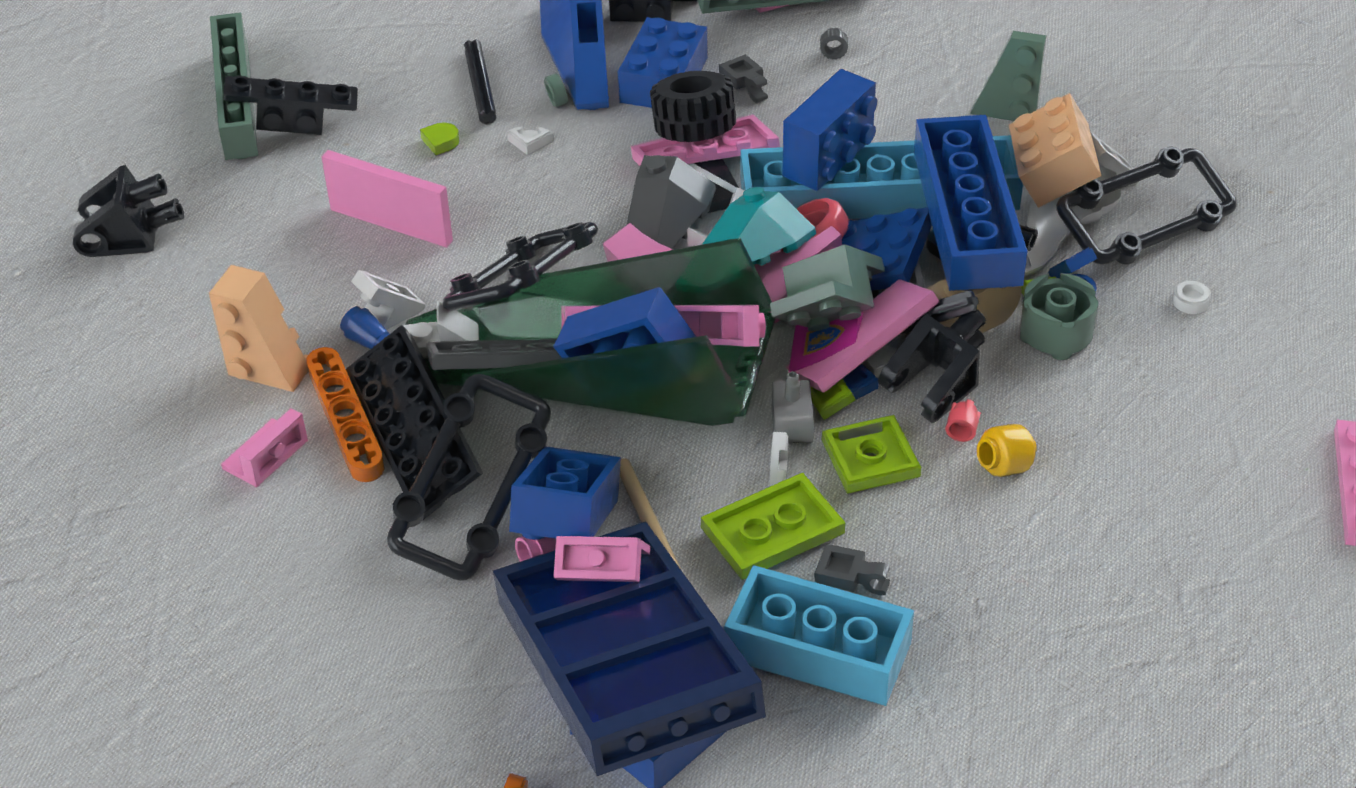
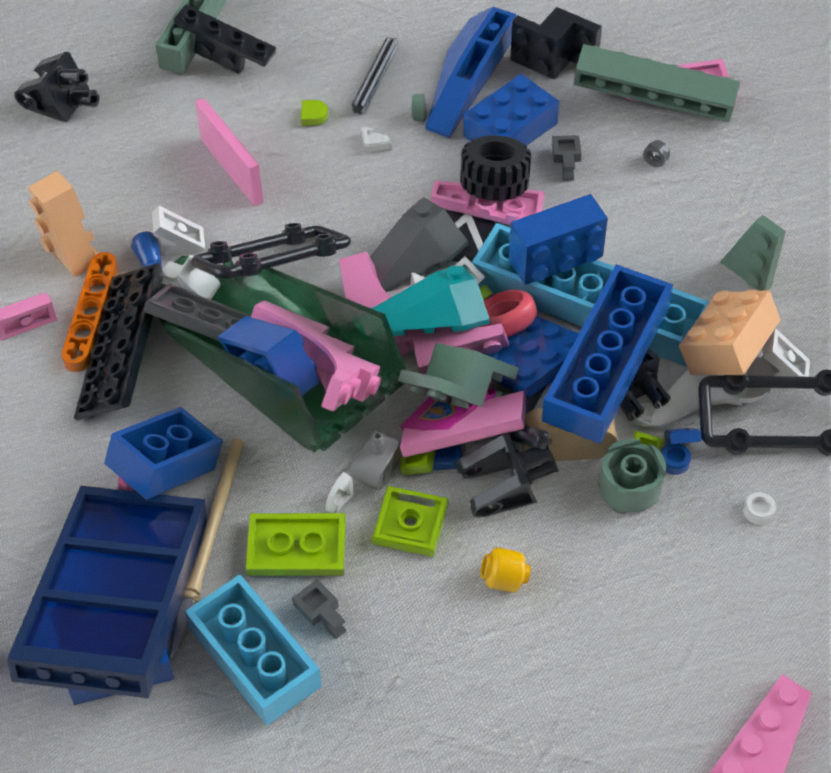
camera: 30 degrees right, 10 degrees up
(483, 537) = (134, 353): black bar -> none
(599, 558) = (139, 516): bright pink panel -> none
(962, 421) = (495, 528): coral hose -> none

